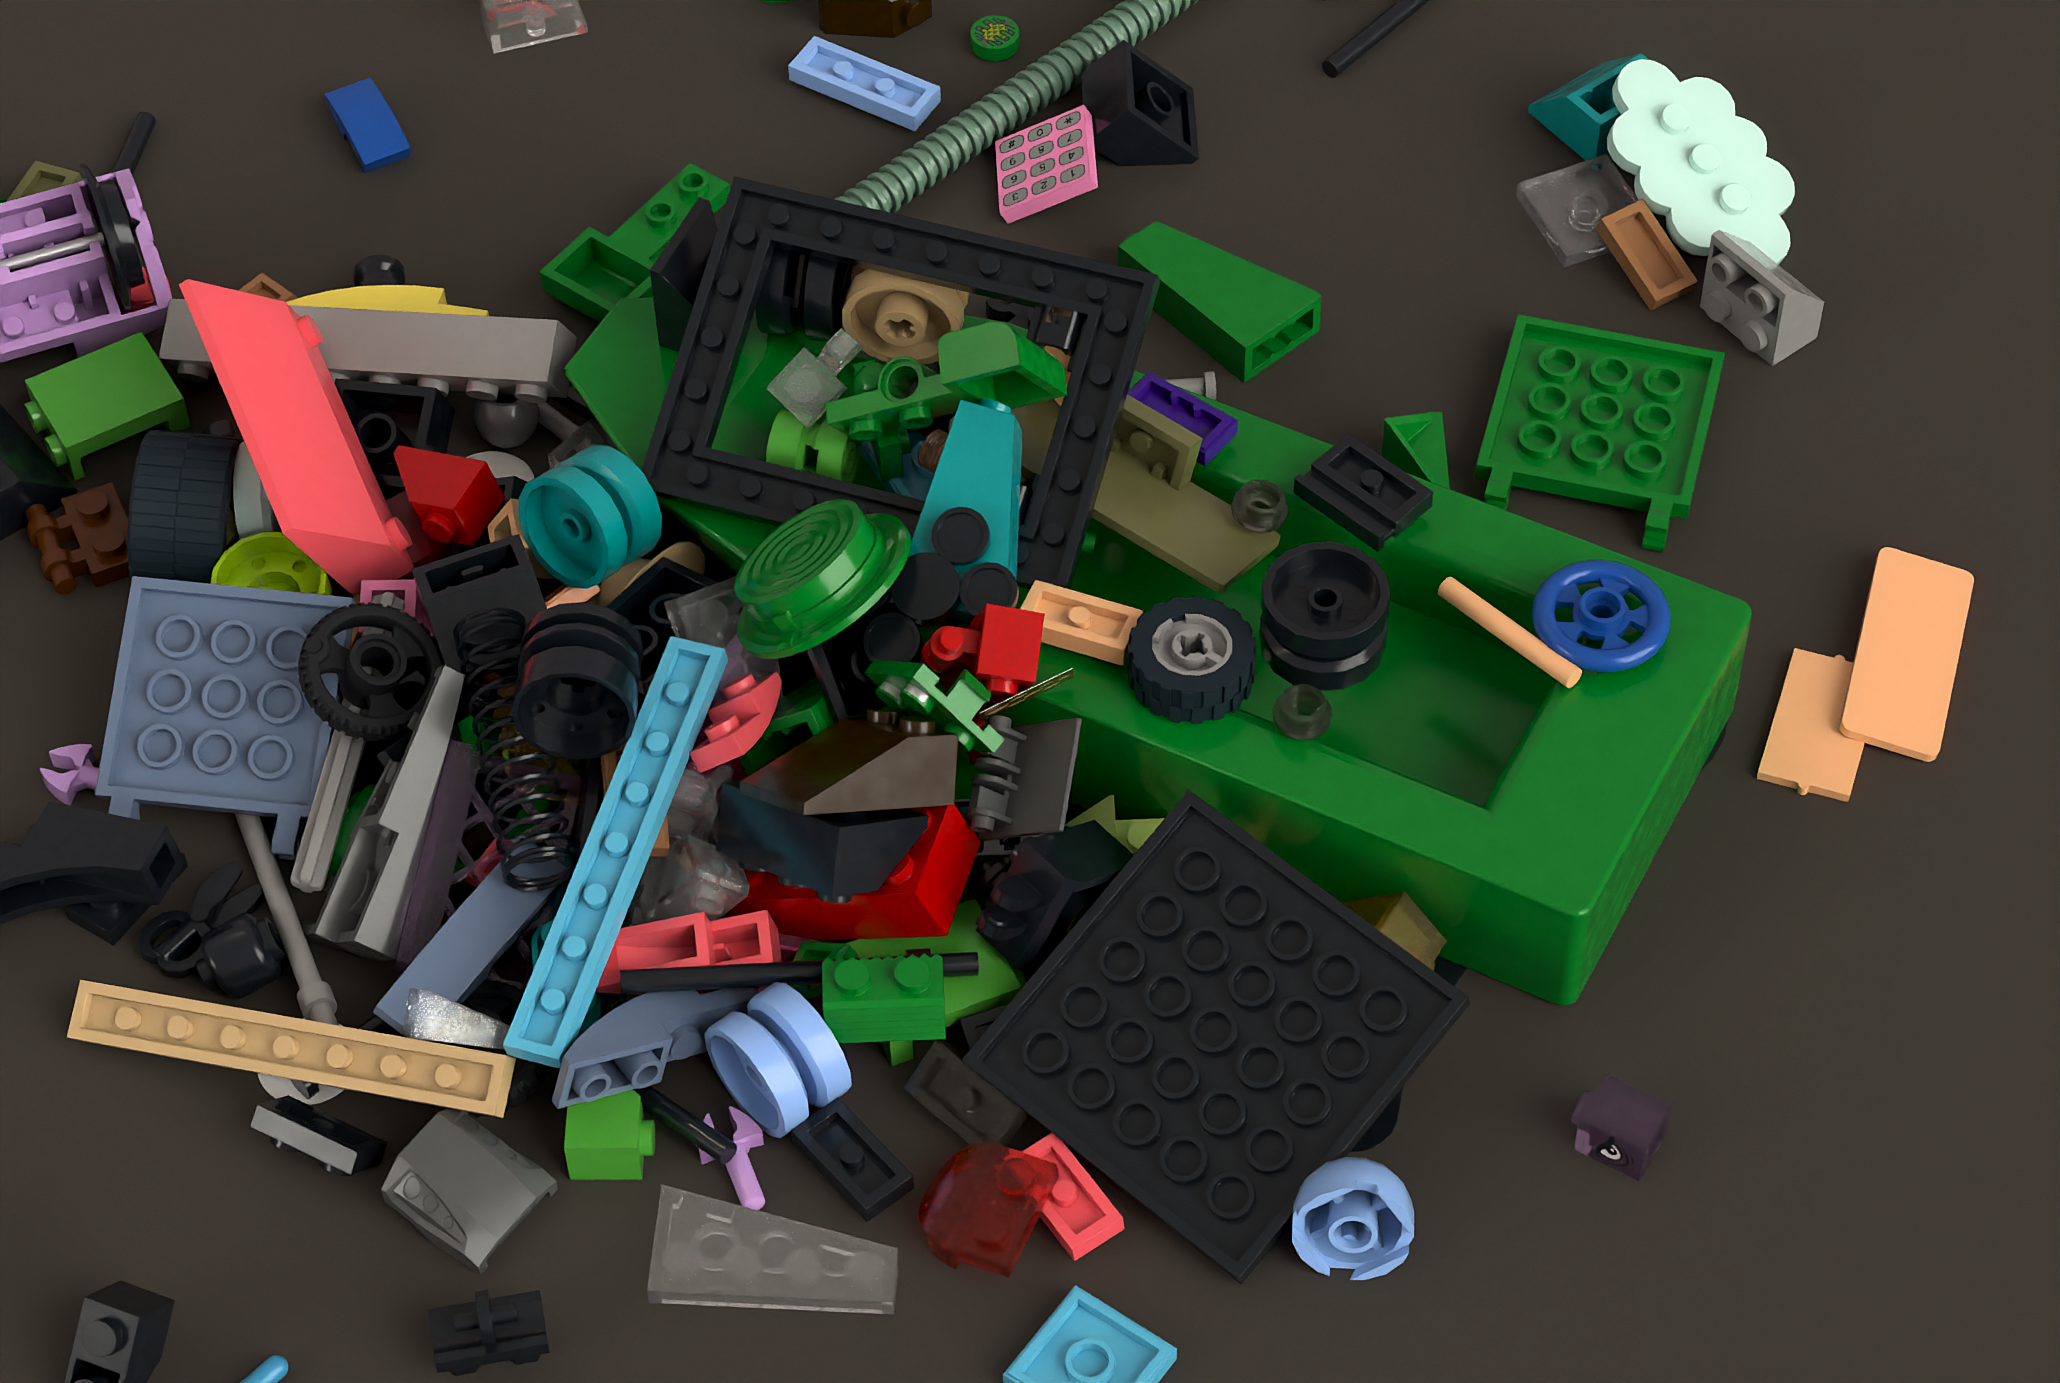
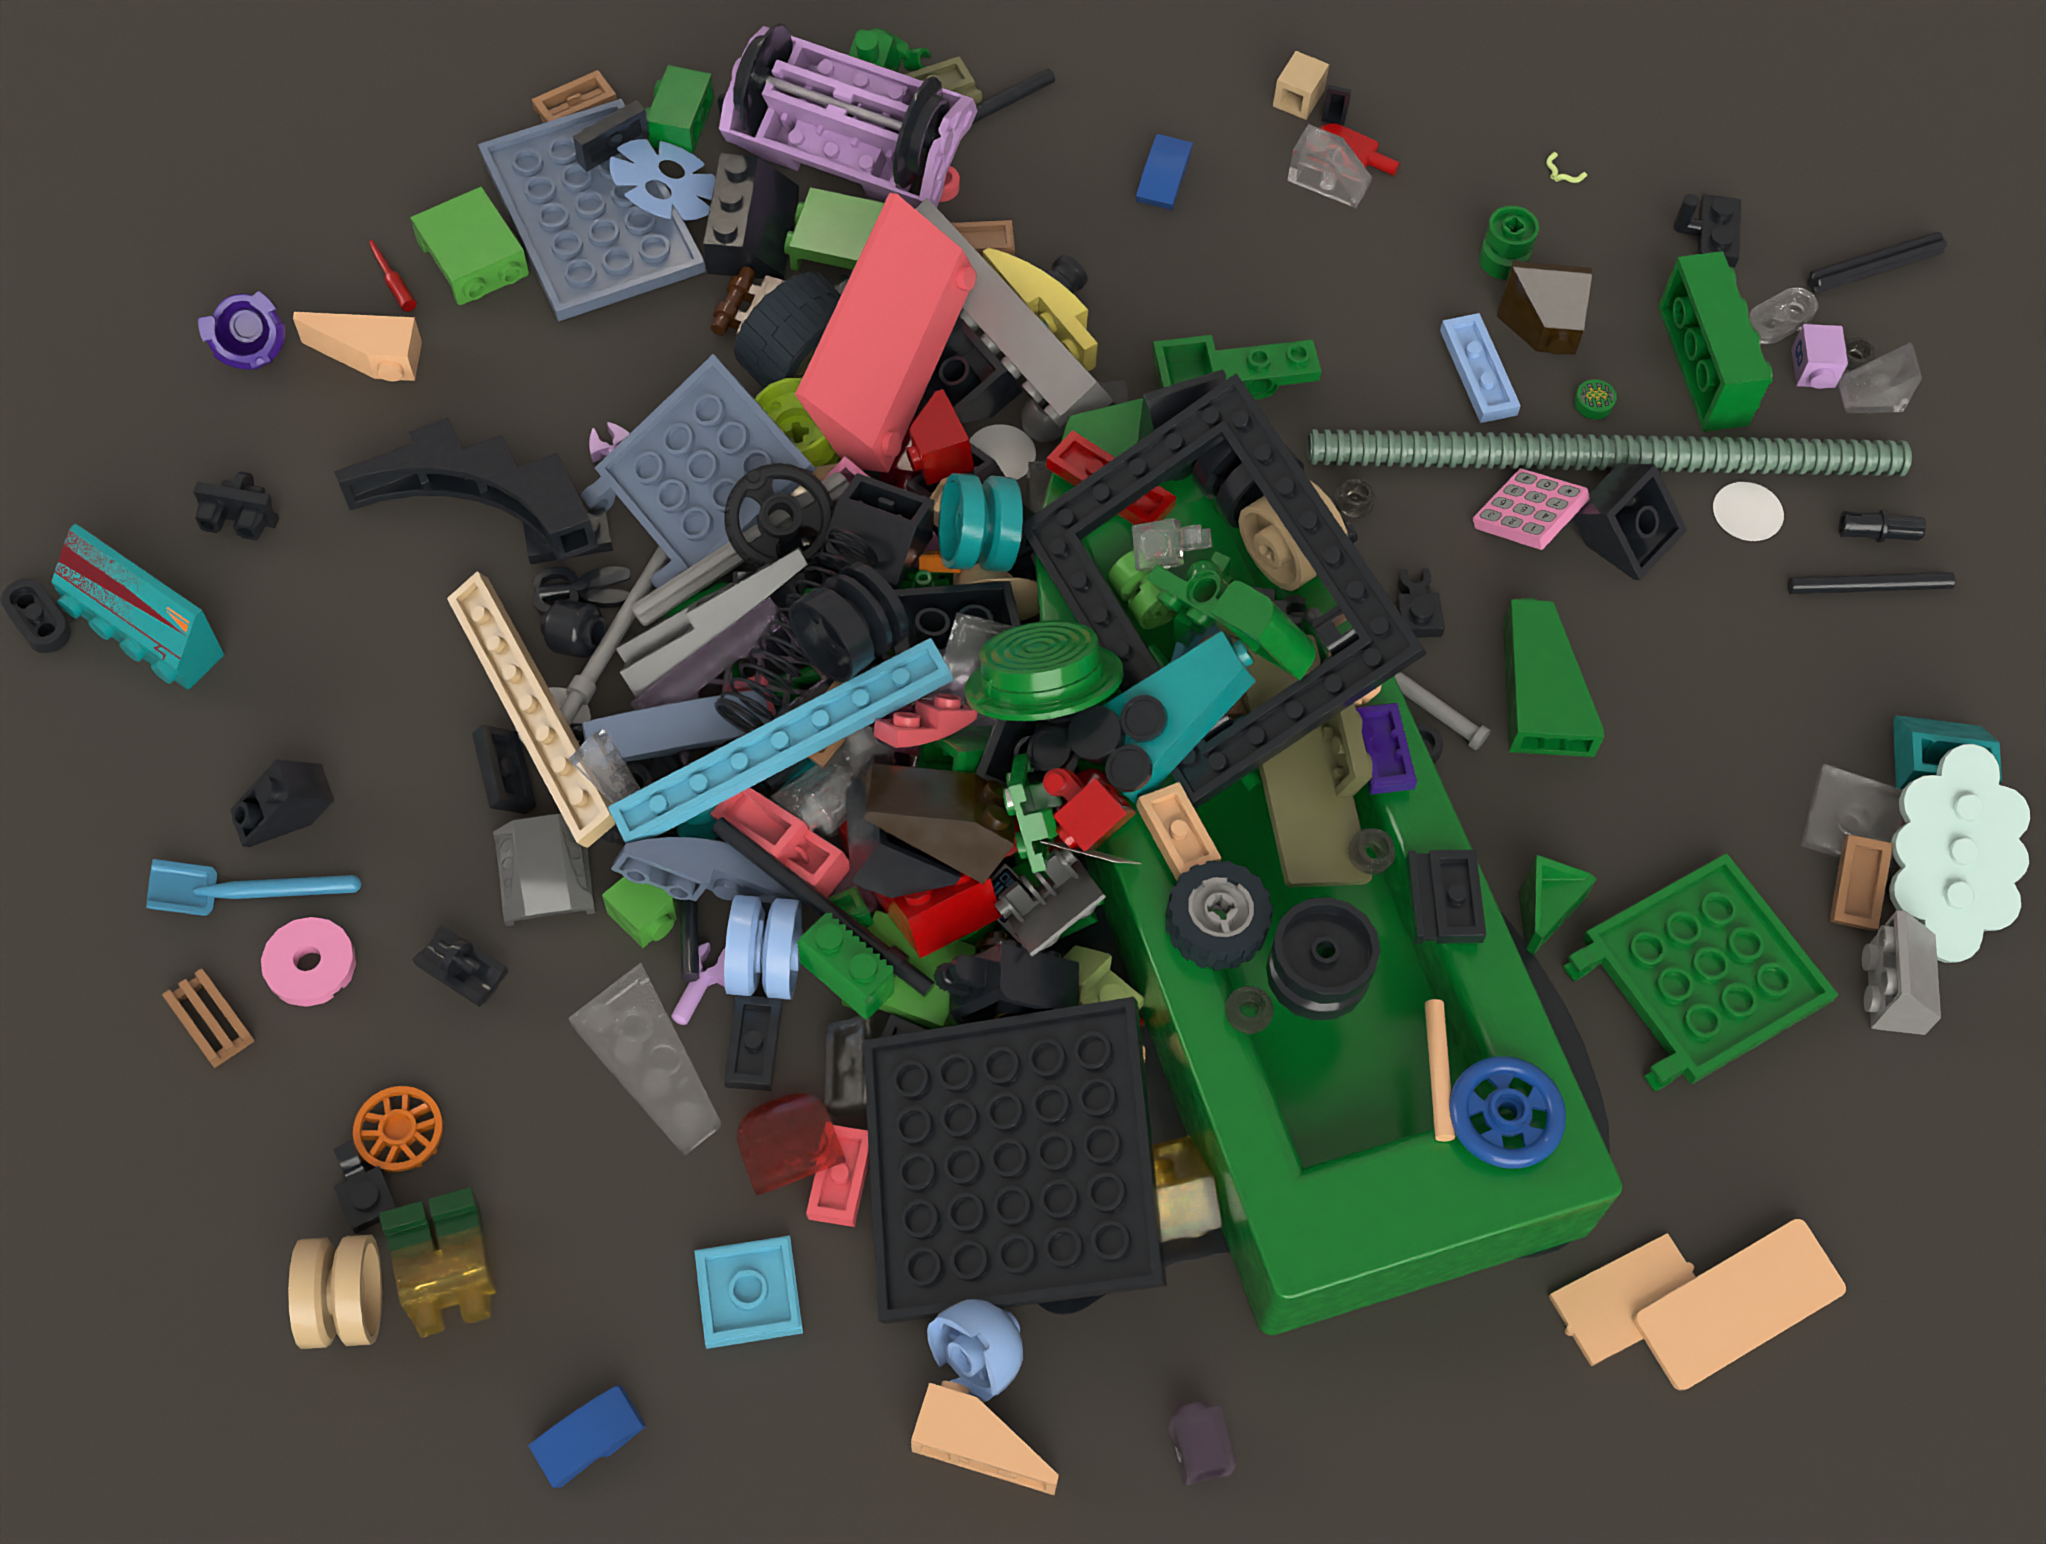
camera: 40 degrees right, 10 degrees up
(639, 389) = (1079, 458): none -> red plate
(1226, 36) = (1748, 511): none -> white sticker
(1432, 1291) = (970, 1435): none -> light nougat slope

